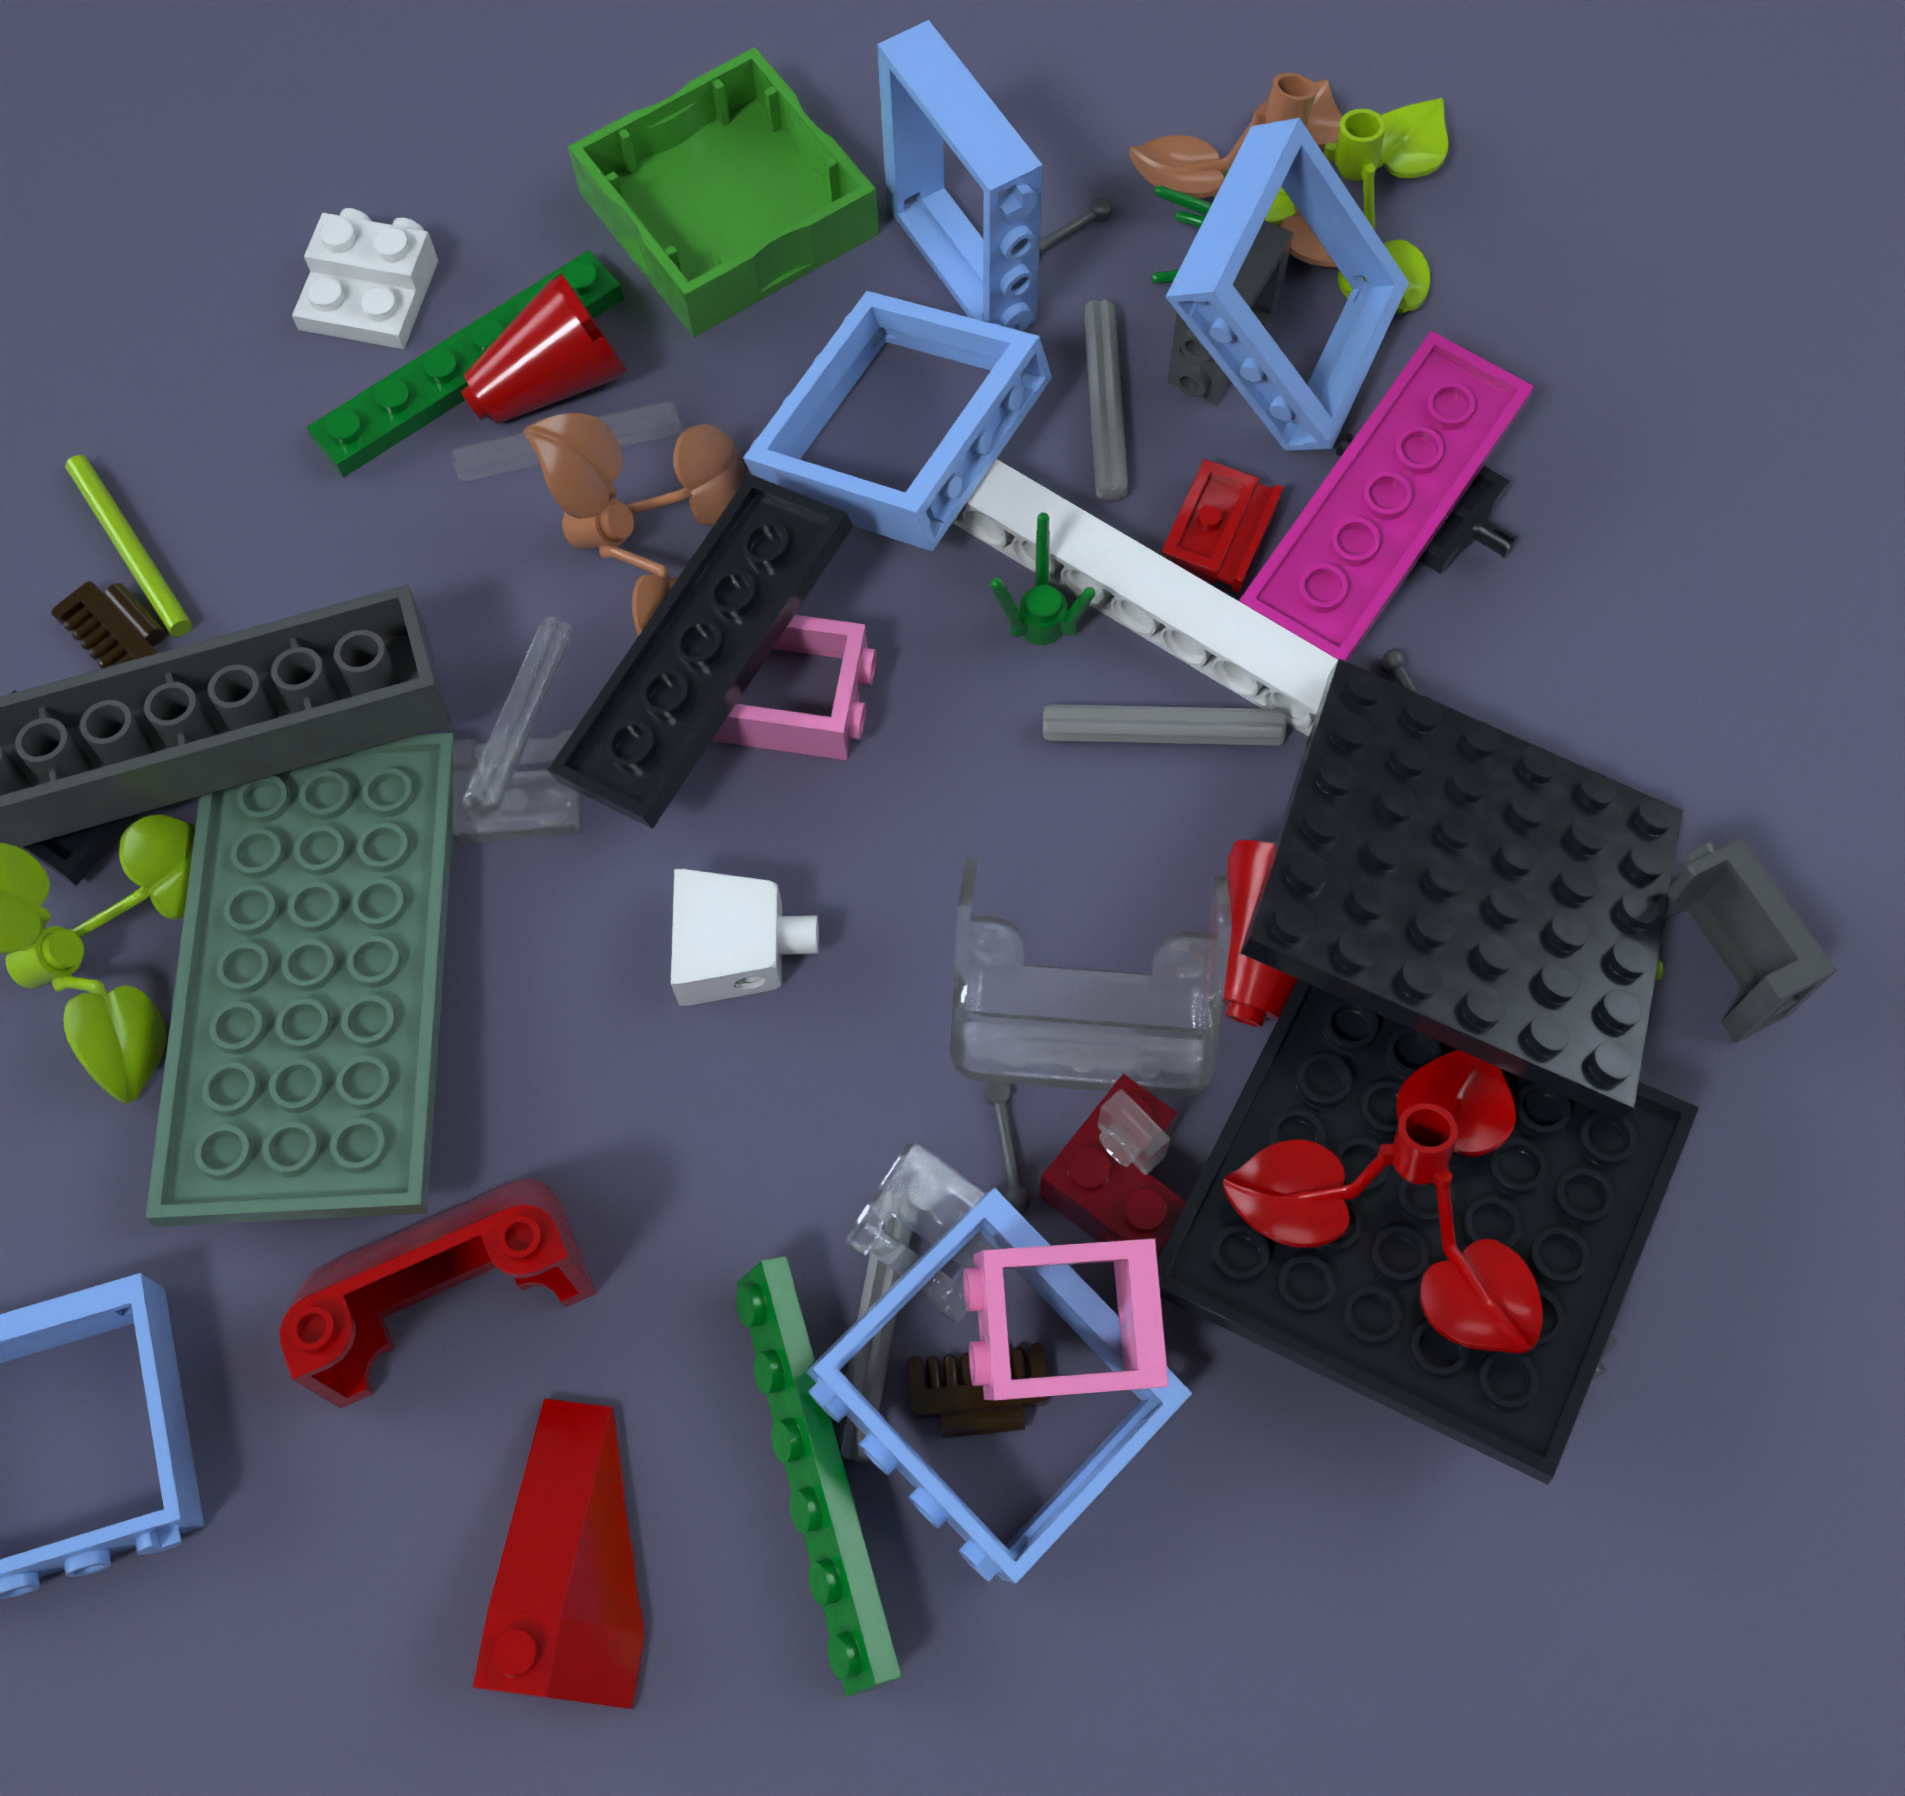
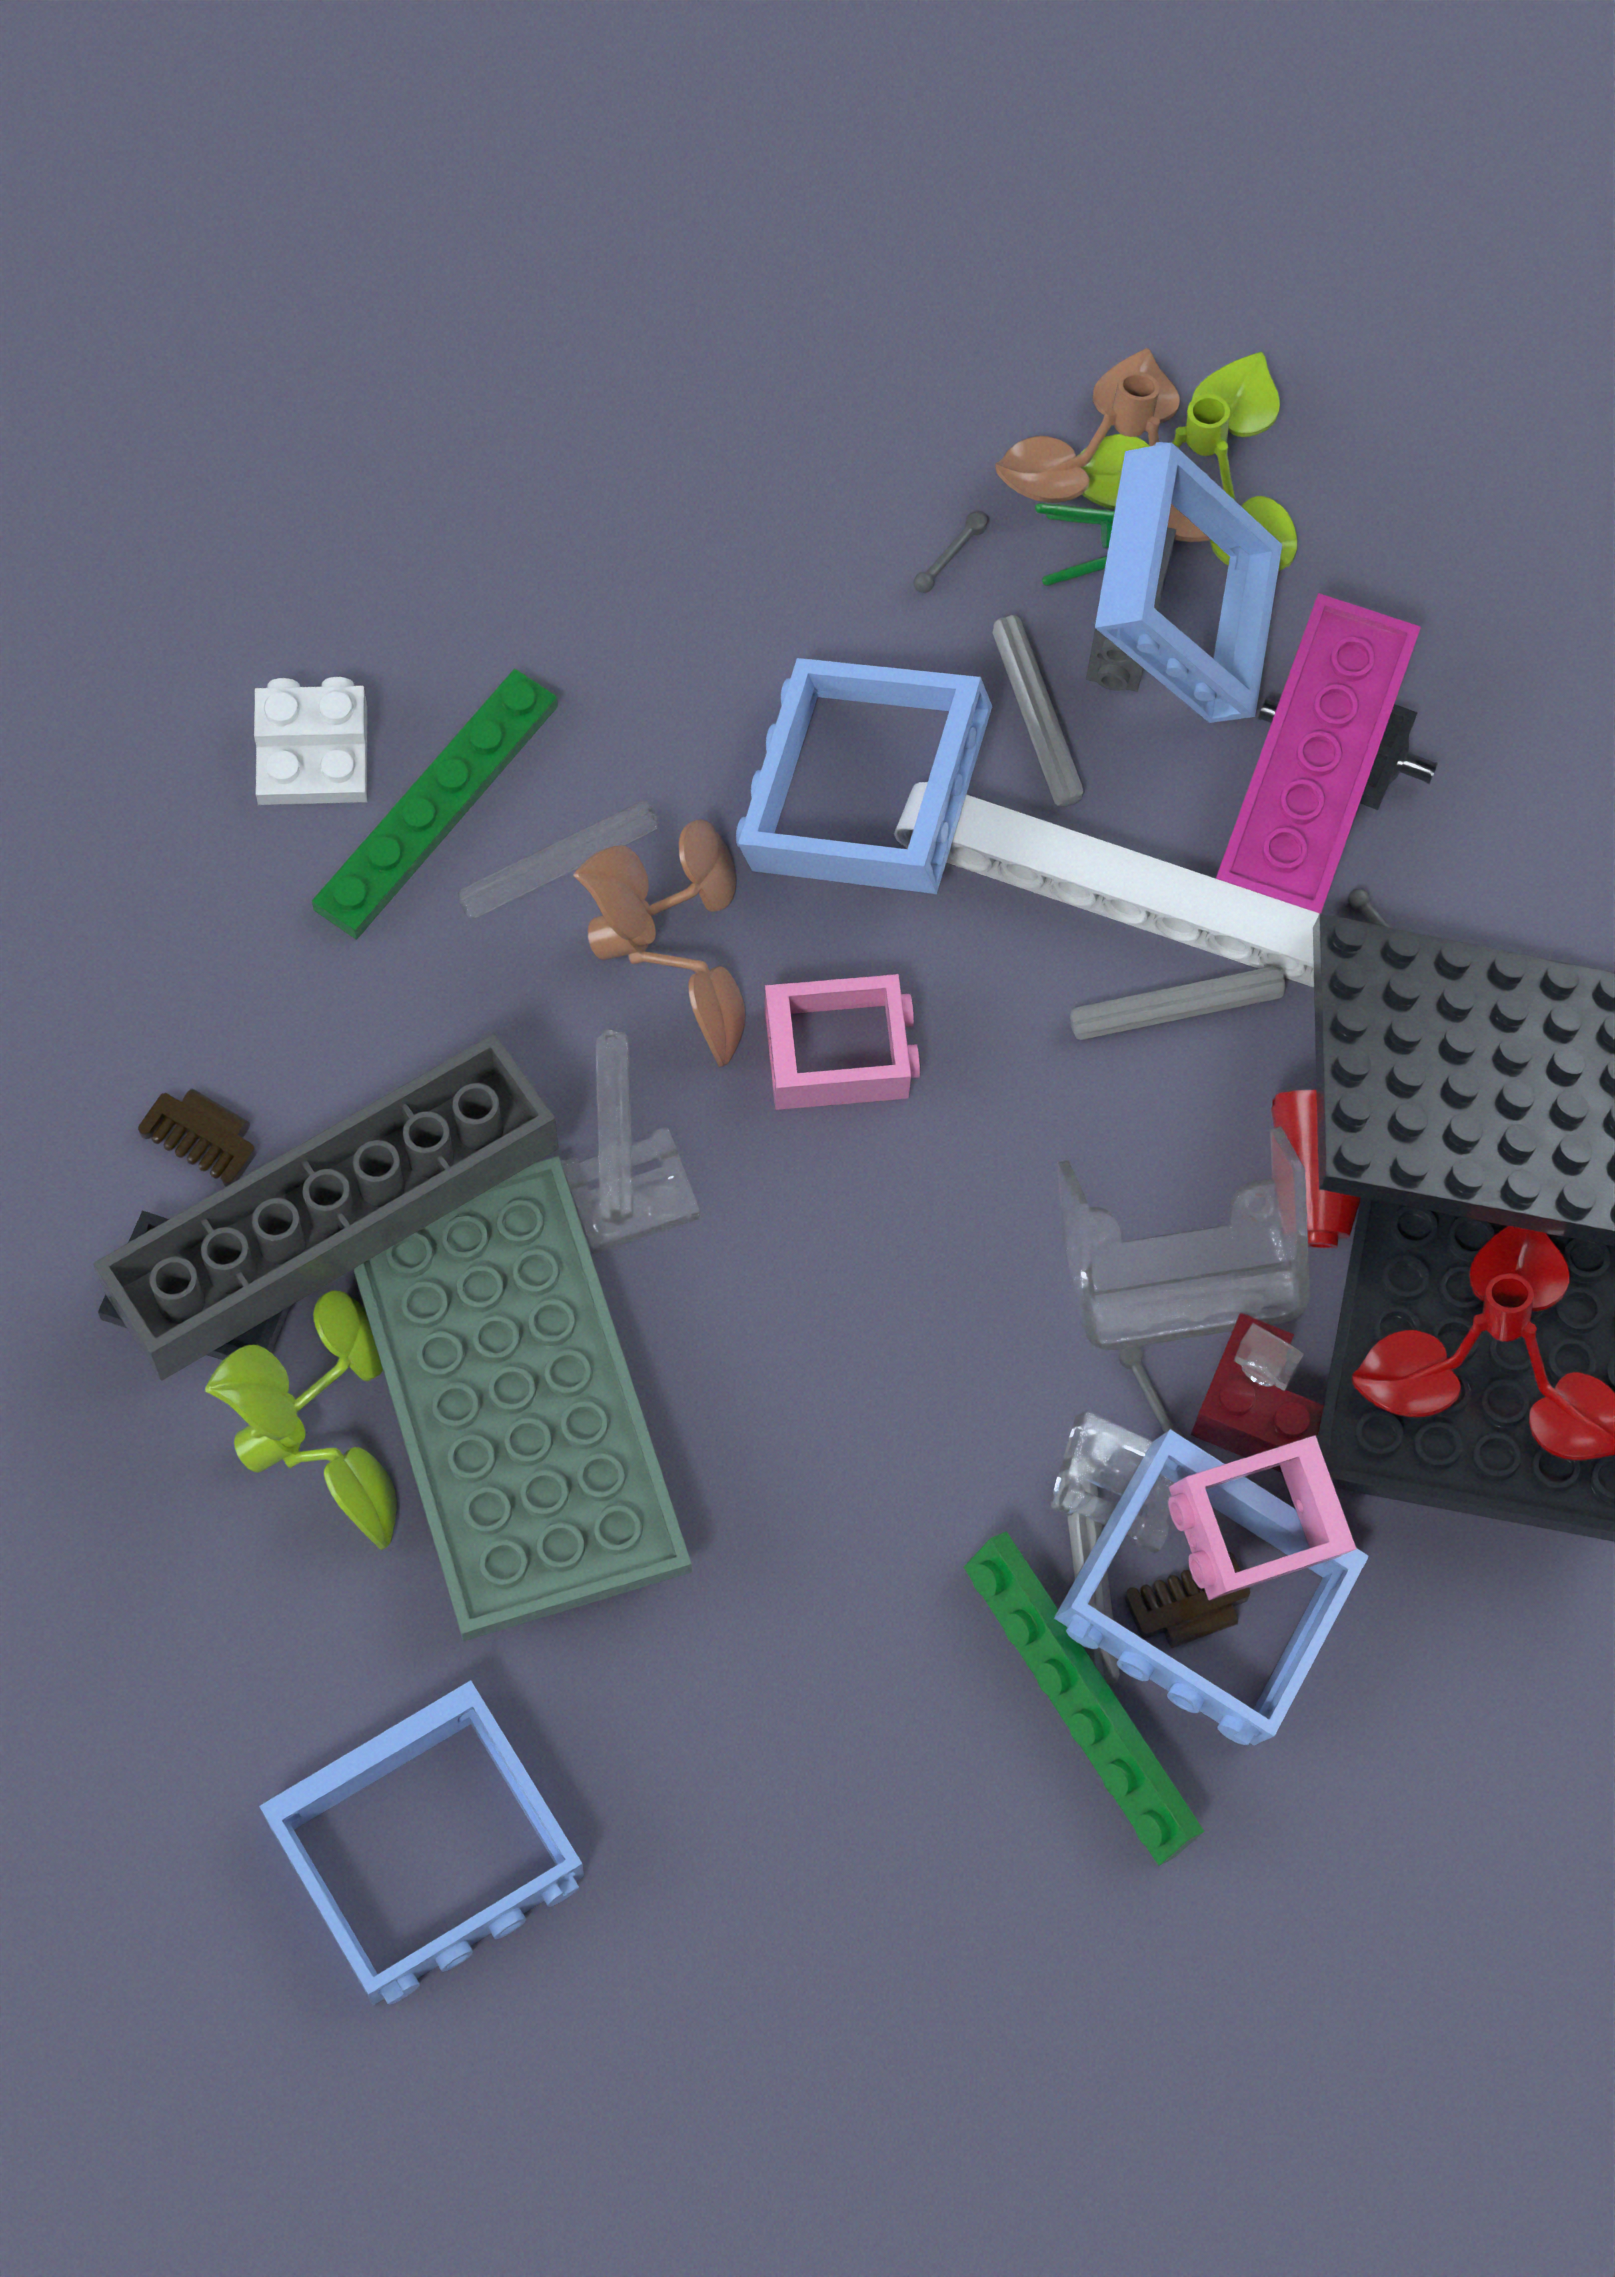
camera: 20 degrees left, 0 degrees up
(128, 546) = (183, 1050): lime bar -> none
(340, 1310) = (651, 1660): red windscreen -> none
(541, 357) = (517, 785): red cone -> none
(566, 1585) = (907, 1836): red wedge -> none
(700, 650) = (767, 1030): black plate -> none
(725, 191) = (626, 583): bright green tile -> none
(731, 936) = (866, 1277): white torso -> none
(935, 98) = (824, 464): light blue window -> none
(1043, 608) = (1043, 921): green plant -> none
(1221, 524) = (1177, 808): red plate -> none

